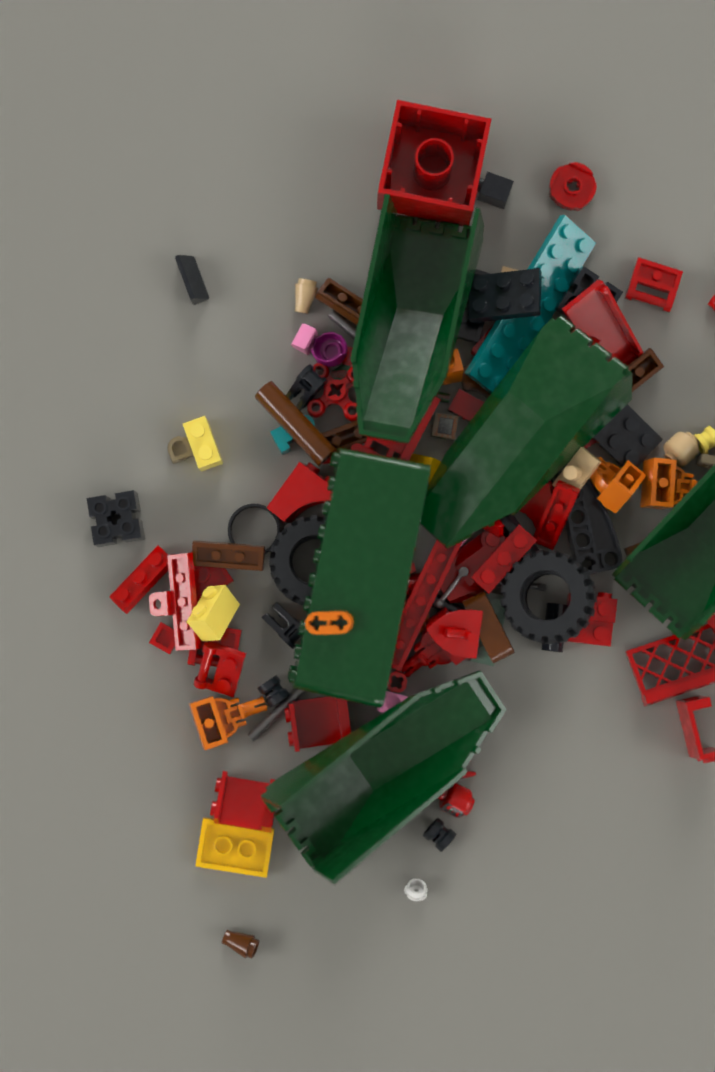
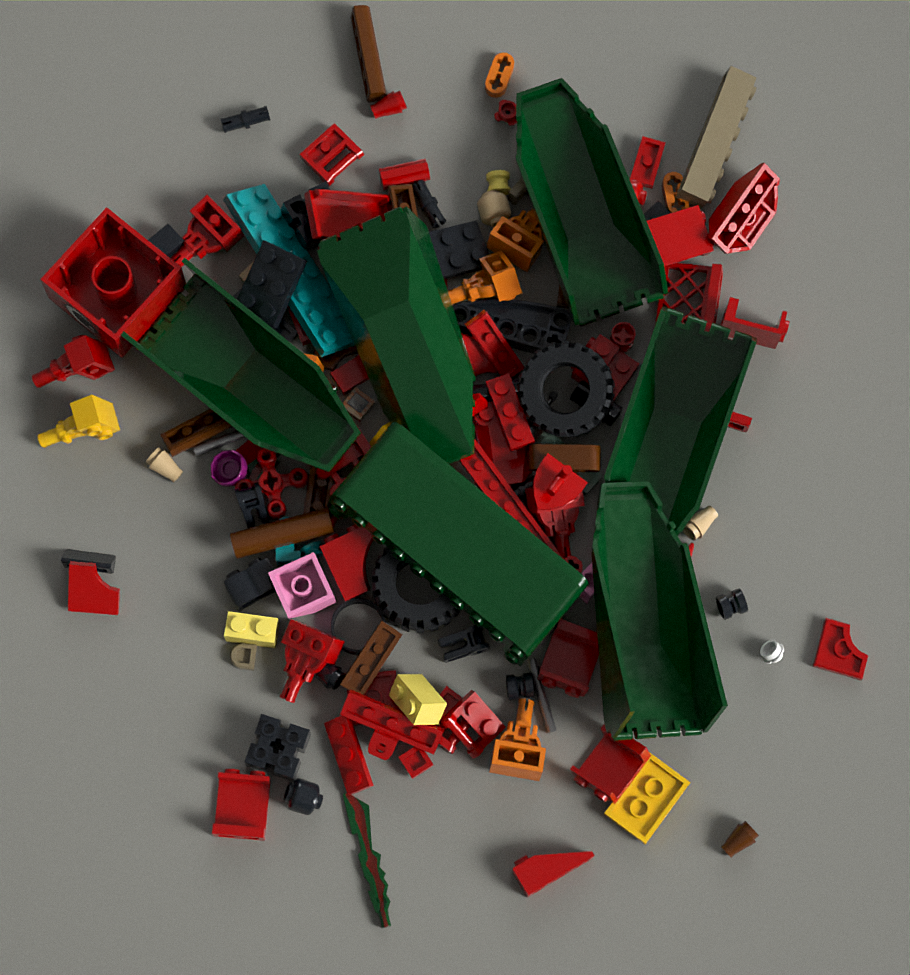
camera: 65 degrees left, 10 degrees down
(54, 516) = (242, 805): none -> red panel
(66, 643) = (359, 821): none -> dark green sword
(87, 561) = (303, 796): none -> black head
(129, 792) = (542, 870): none -> red slope
(164, 294) = (89, 592): none -> red tile
(201, 524) = (330, 676): none -> black cone
(205, 500) = (306, 654): none -> red brick
(243, 423) = (250, 584): none -> black brick
(259, 465) = (302, 587): none -> bright pink slope
(296, 456) = (313, 547): none -> teal bush
(305, 339) = (205, 486): bright pink brick -> none
(307, 209) = (90, 417): none -> yellow brick
(329, 628) = (480, 584): orange beam -> none
(354, 174) = (82, 357): none -> red brick
(447, 945) = (837, 652): none -> red tile
(456, 801) = (709, 572): red head -> none
(463, 571) = (501, 455): flat silver hinge -> none
(495, 770) = (700, 523): none -> tan cone
(524, 218) = (207, 232): none -> red brick
(567, 174) = (207, 164): red plate -> none
(579, 468) = (464, 302): tan tile -> none
(585, 706) = (680, 411): none -> dark green windscreen
(604, 758) = (739, 422): none -> red tile
(630, 619) = (623, 331): none -> red wheel
(645, 194) = (245, 119): none -> black pin
(654, 390) = (428, 204): none -> black pin
(670, 356) = (404, 173): none -> red axle

